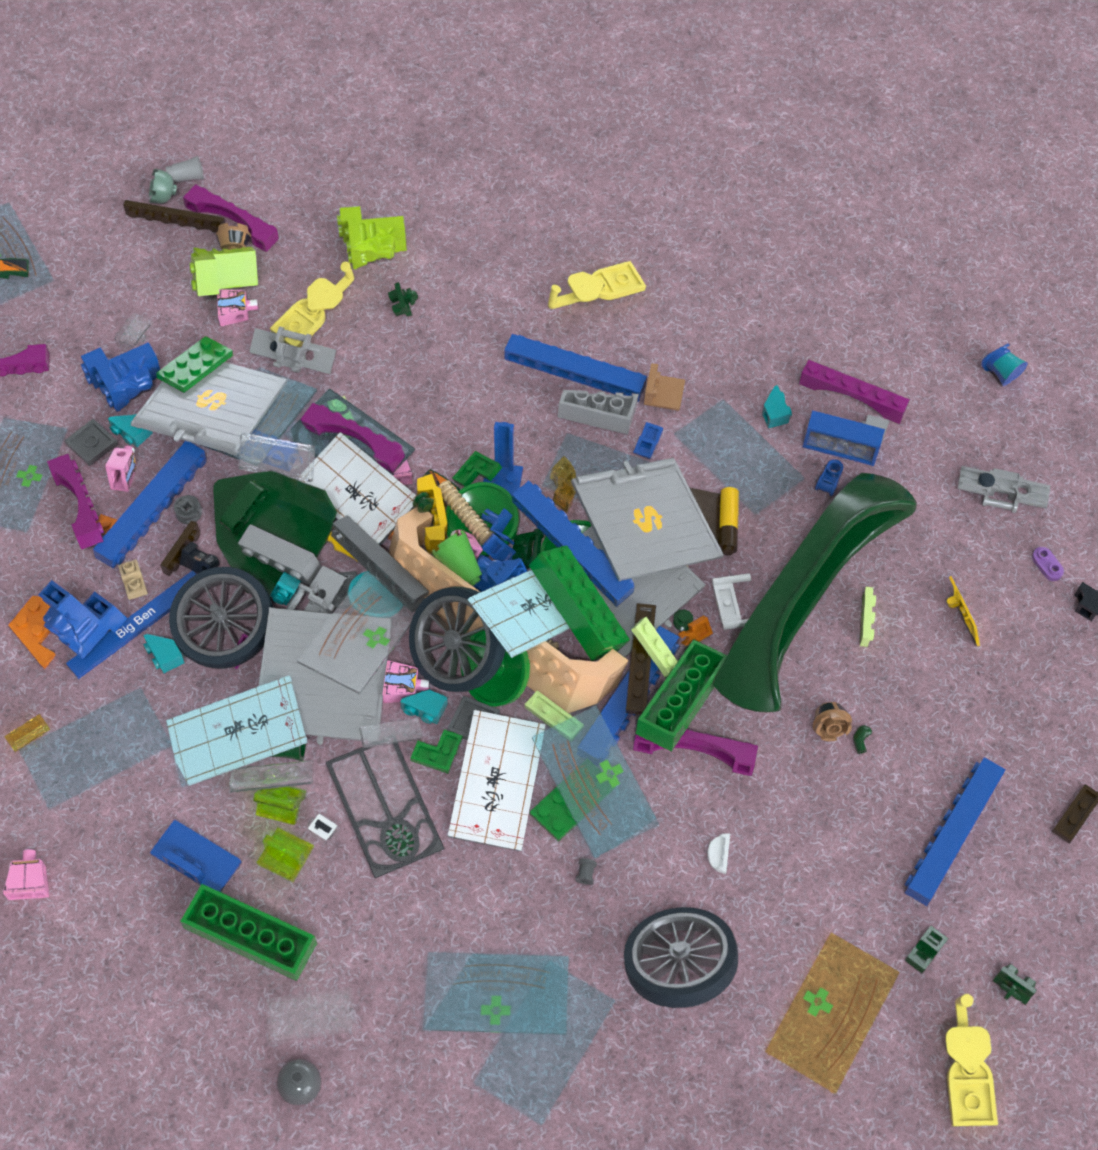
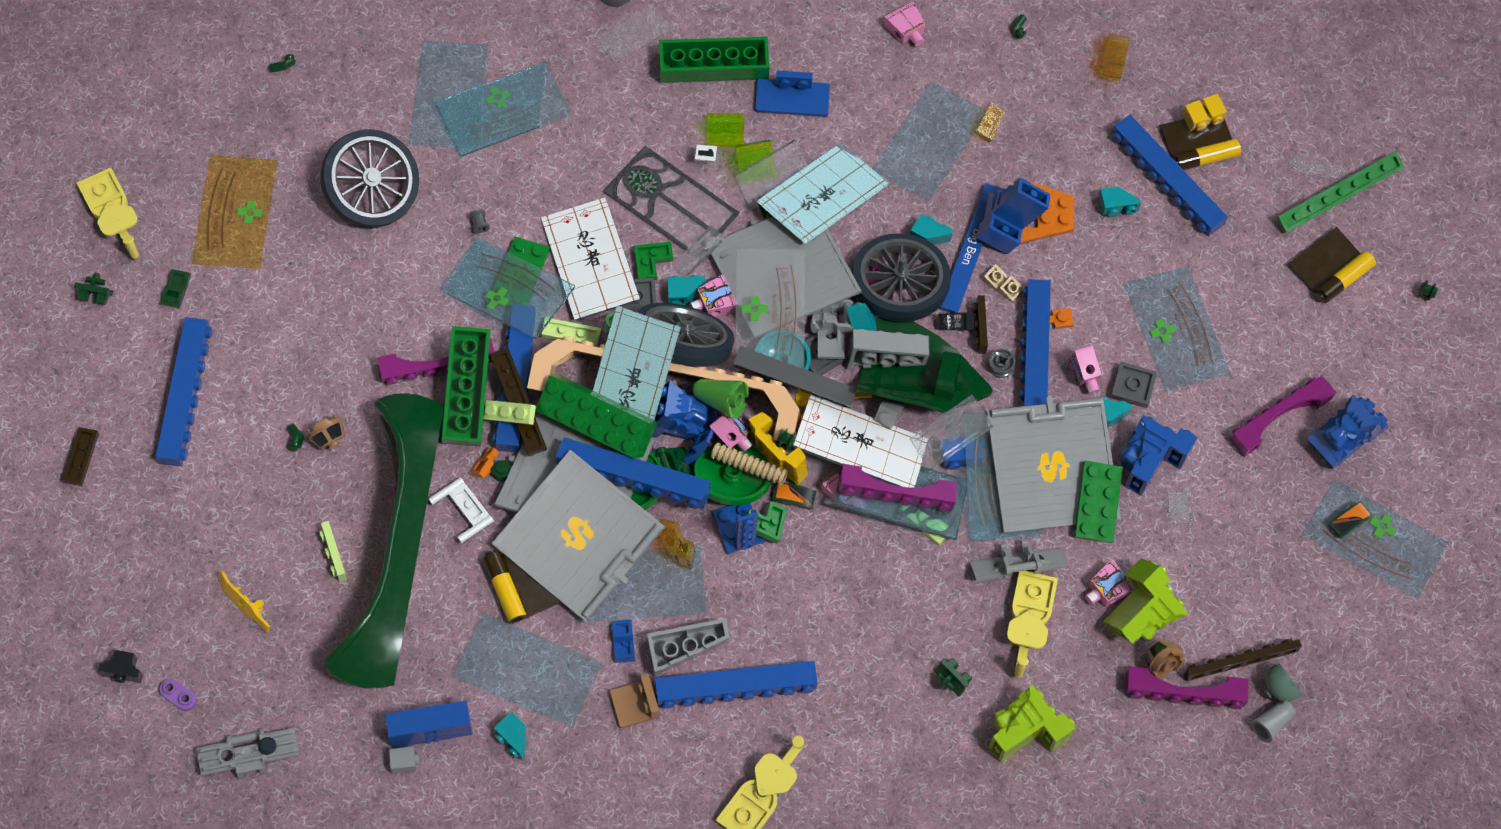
camera: 150 degrees right, 5 degrees up
(85, 527) = (1129, 341): magenta arch -> none
(498, 523) = (711, 464): blue bracket -> none
(718, 853) = (379, 288): white tile -> none
(820, 377) = (452, 791): magenta arch -> none
(829, 480) = (426, 679): blue piece -> none

